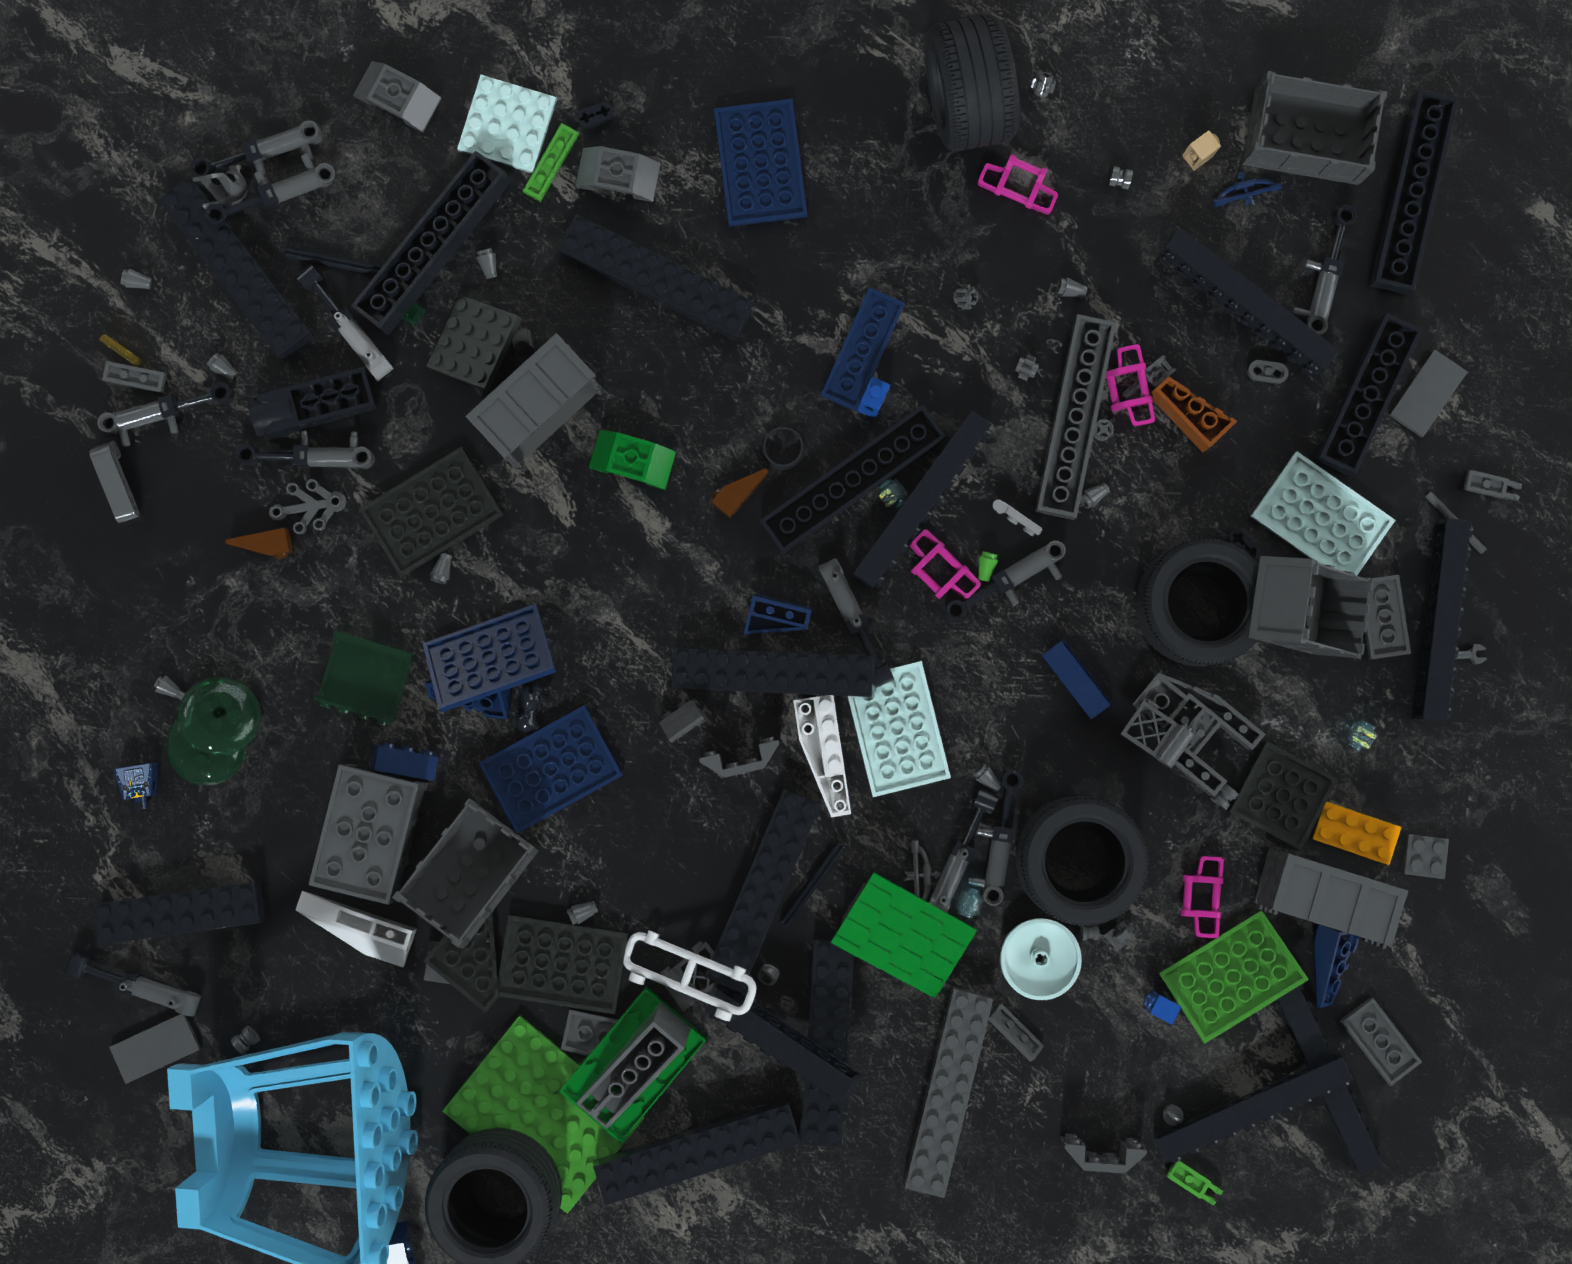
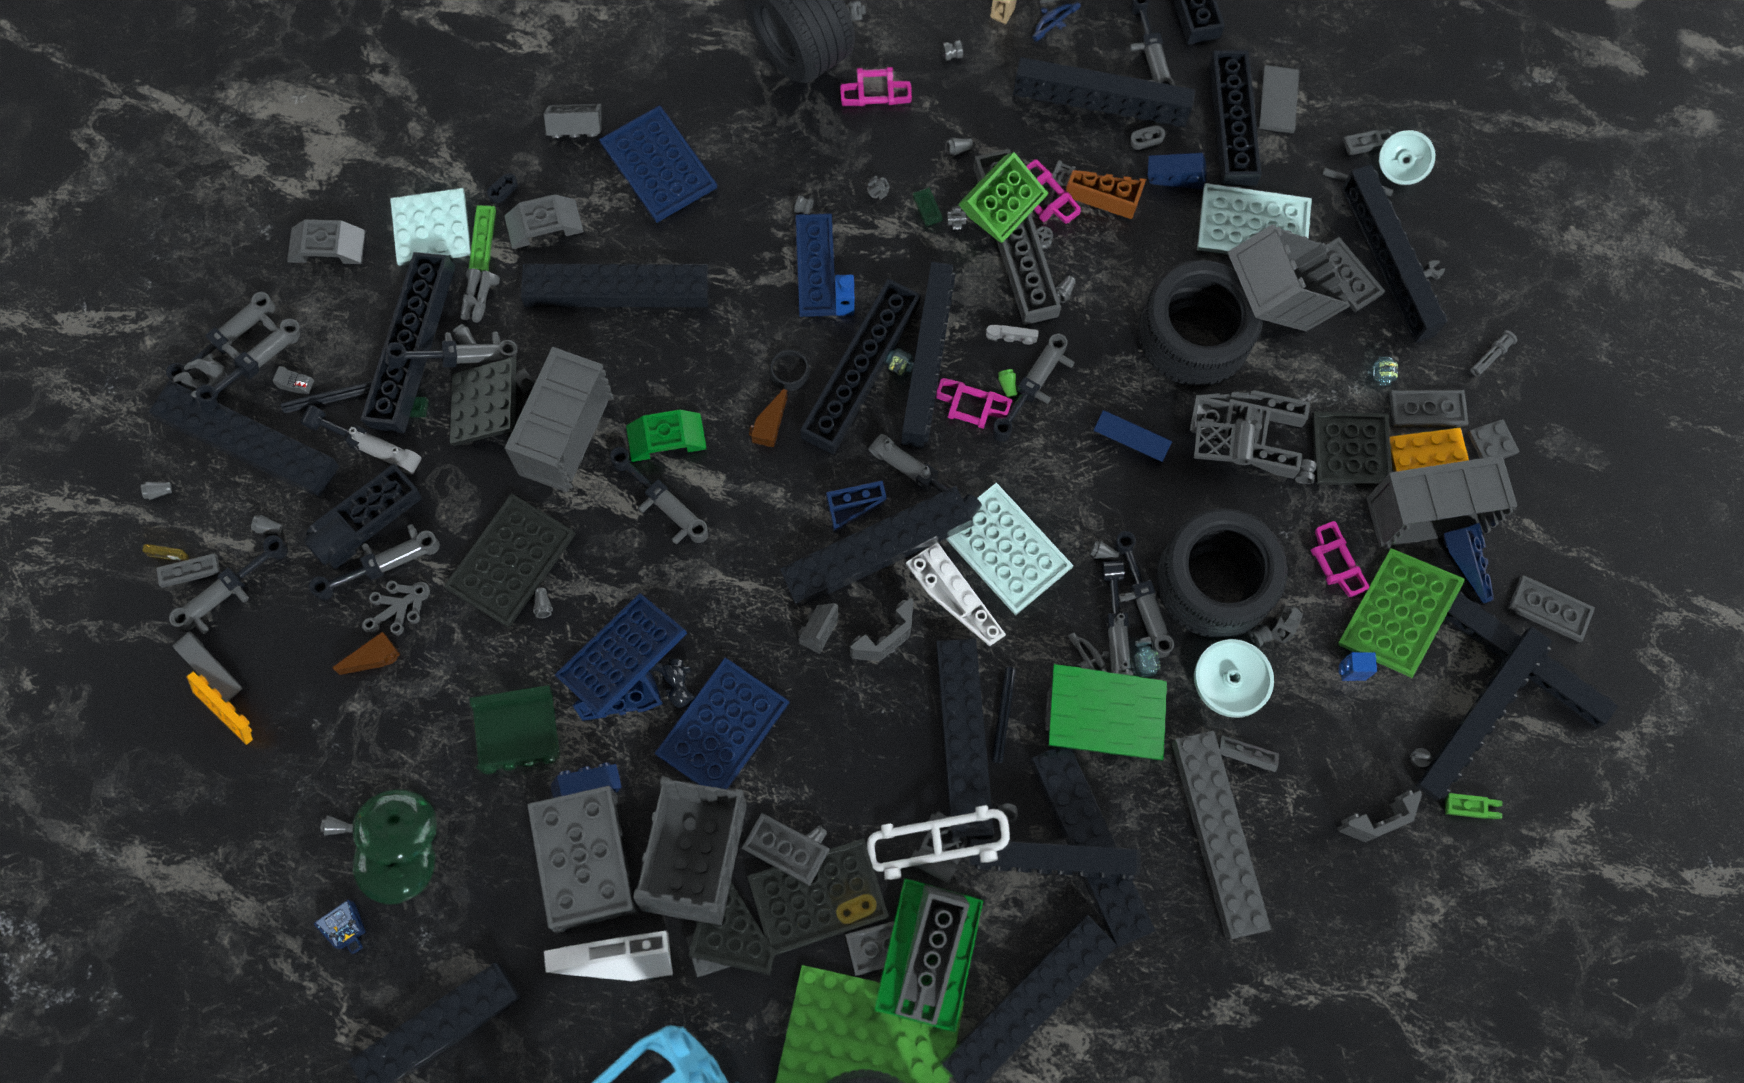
camera: 30 degrees left, 15 degrees down
(109, 521) = (222, 710): none -> light orange plate
(306, 229) = (292, 381): none -> dark grey leg
(471, 281) = (453, 354): none -> piece
(509, 224) = (468, 301): none -> dark grey piece
(553, 909) = (785, 849): none -> dark grey tile
(589, 994) = (856, 909): none -> clear yellow plate
(600, 523) = (660, 496): none -> dark grey piece
(698, 72) = (573, 120): none -> dark grey slope
(882, 279) = (803, 205): none -> dark grey wheel
(1005, 340) = (927, 207): none -> clear green plate
(1080, 375) = (1003, 197): none -> bright green slope
(1276, 425) = (1178, 170): none -> dark blue wedge
(1383, 791) = (1428, 408): none -> dark grey tile
(1489, 765) = (1498, 348): none -> dark grey pin
(1513, 540) = (1411, 145): none -> light aqua hat

